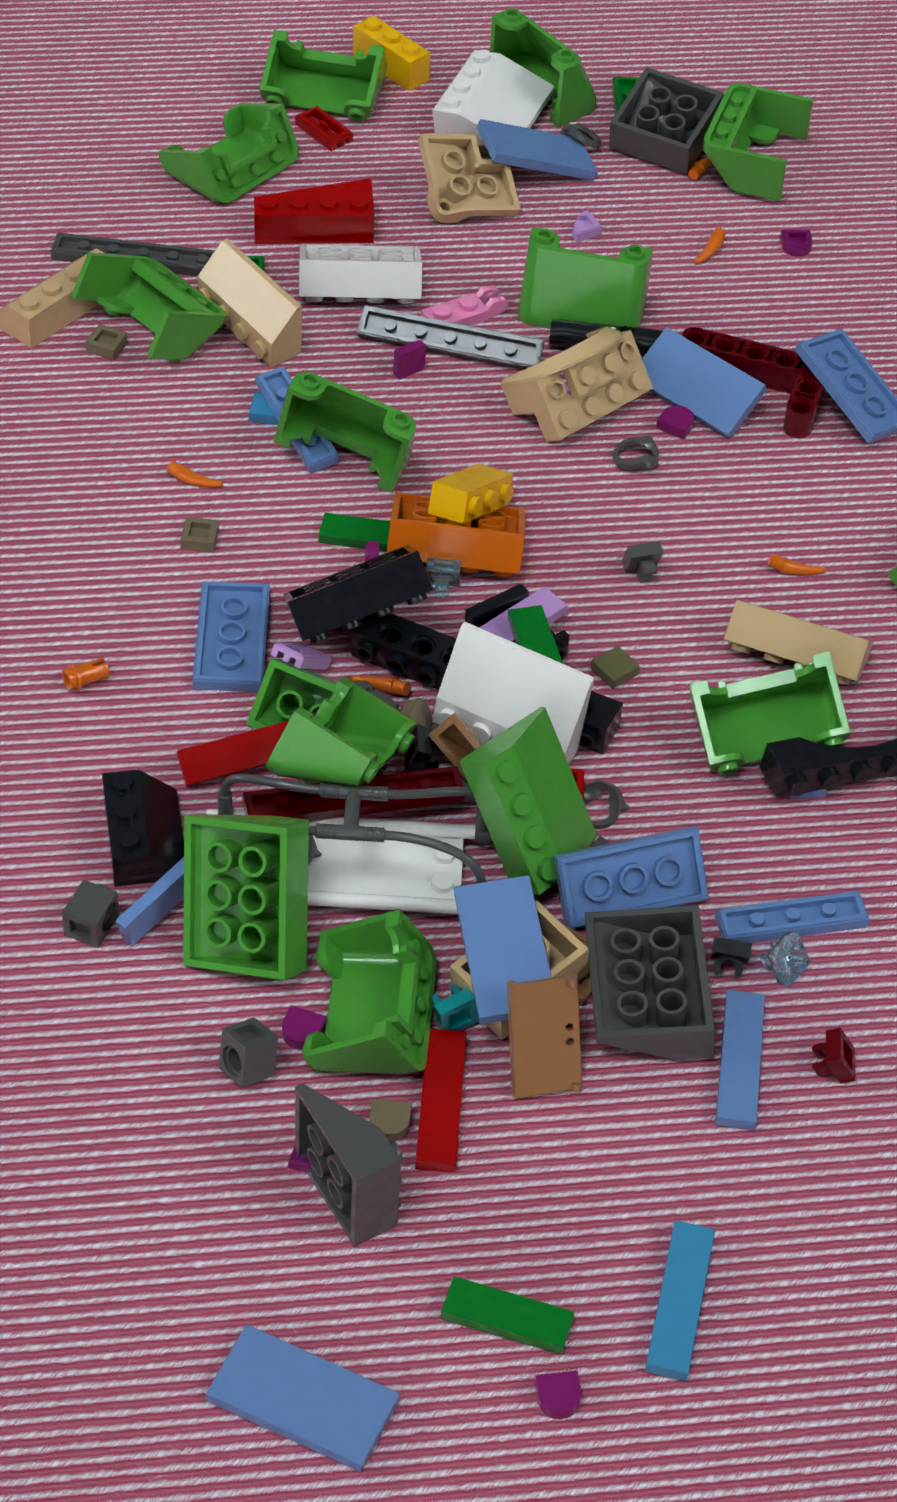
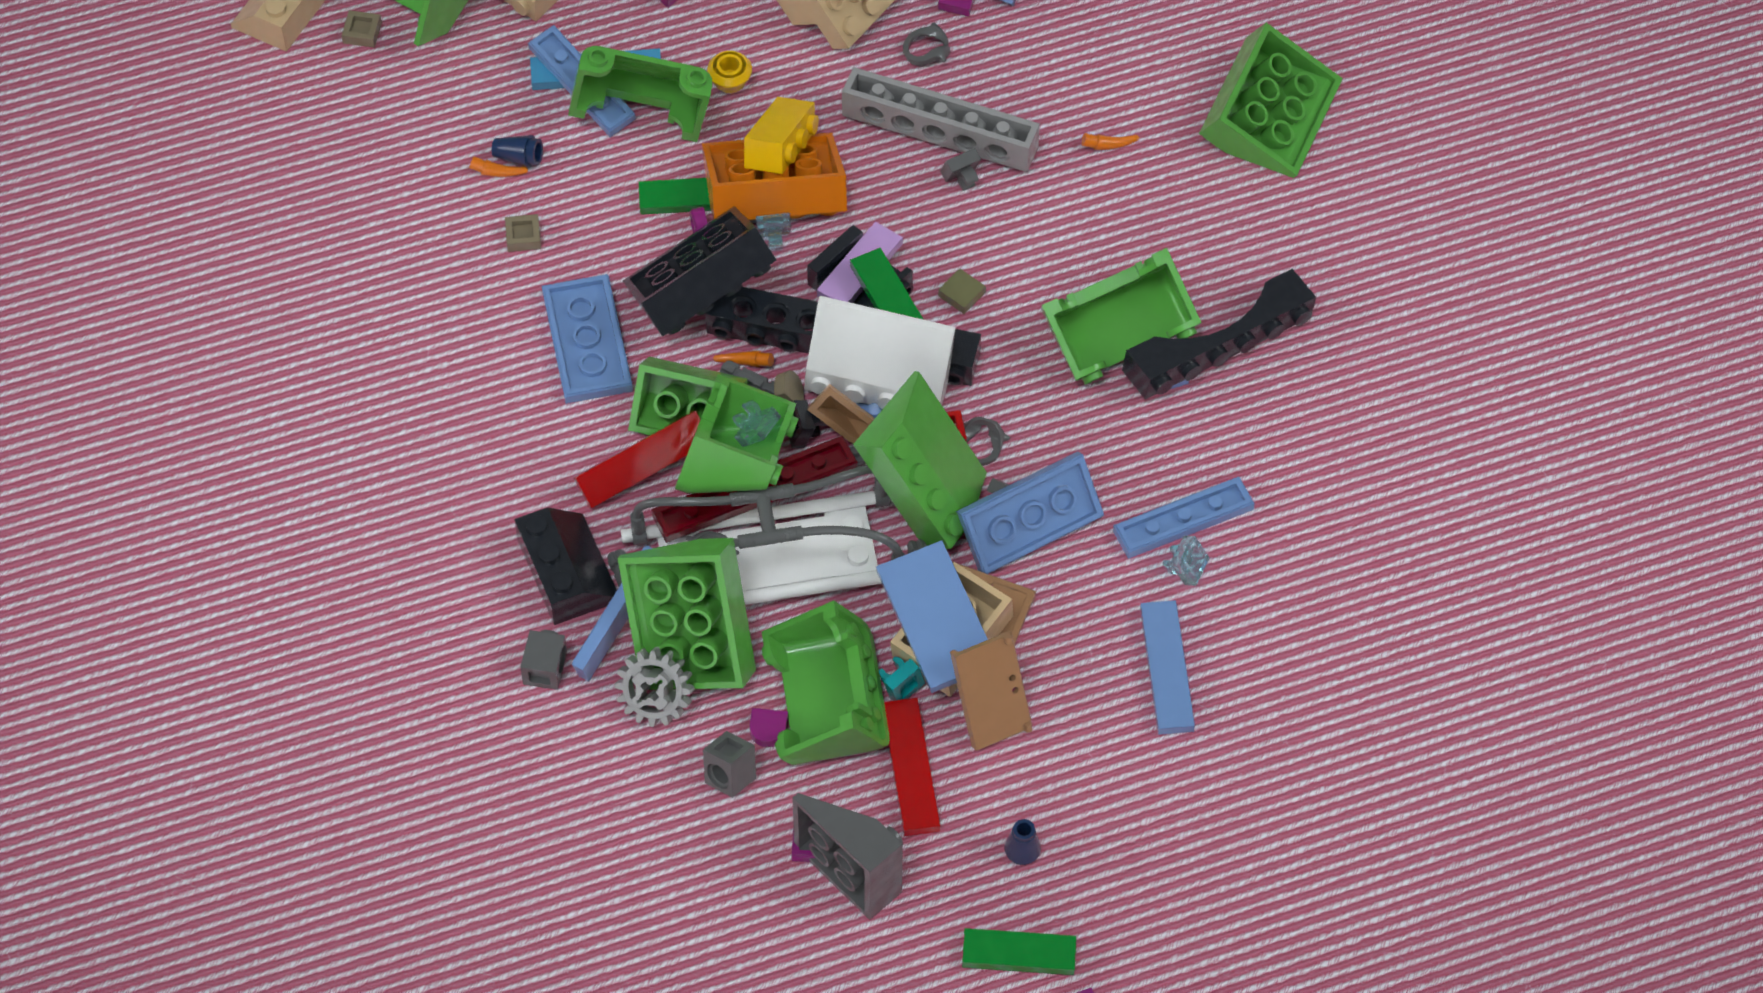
camera: 10 degrees left, 10 degrees up
(77, 676) = (459, 412): orange pin -> none
(207, 968) = (665, 698): none -> light grey gear
(219, 464) = (518, 150): none -> dark blue cone
(302, 655) = (671, 350): lavender tile -> none
(370, 729) = (756, 425): none -> clear light blue tile
(391, 1117) = (870, 796): dark tan tile -> none
(439, 436) = (729, 71): none -> yellow cone
(540, 1200) = (1023, 843): none -> dark blue cone
(633, 512) = (940, 119): none -> light grey brick
(651, 981) = (1072, 612): dark grey slope -> none
(680, 1301) = (1164, 903): dark azure tile -> none
(730, 951) = (1136, 565): black tile -> none
(795, 640) = (1129, 225): tan slope -> none
(838, 1054) = (1254, 645): dark red tile -> none

